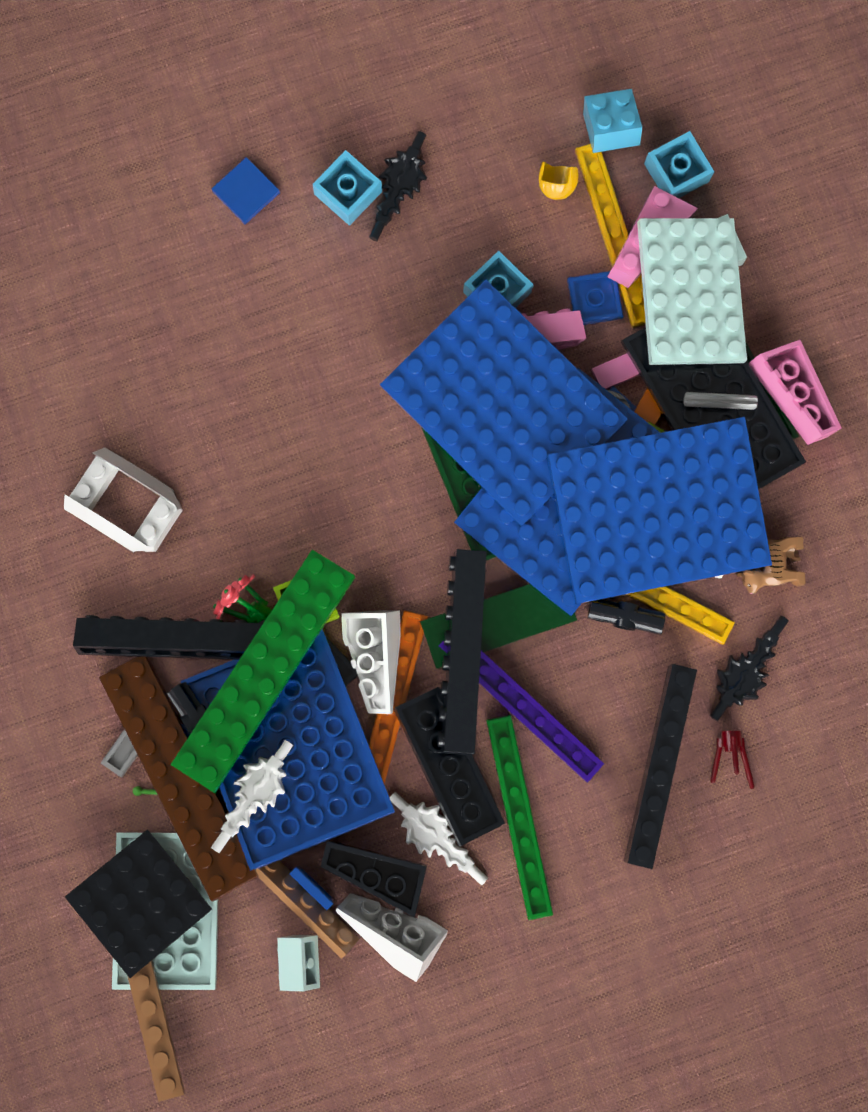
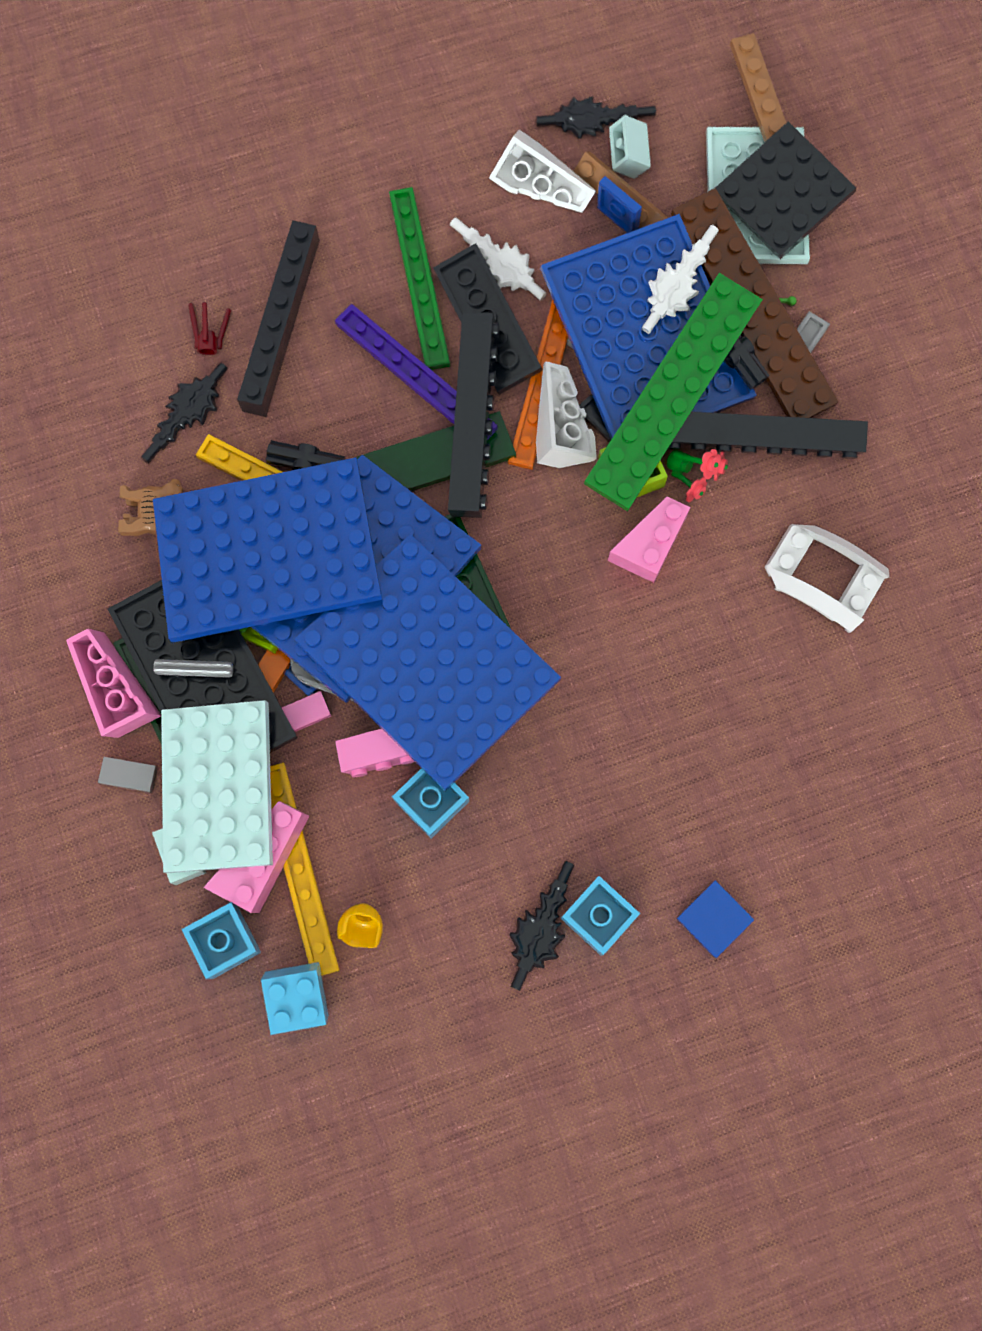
camera: 175 degrees left, 5 degrees down
(289, 531) = (651, 540): none -> bright pink wedge
(344, 1007) = (587, 117): none -> black piece
(383, 875) = (554, 220): black wedge -> none
(595, 297) = (324, 794): blue tile -> none
(774, 315) = (127, 774): none -> light grey tile

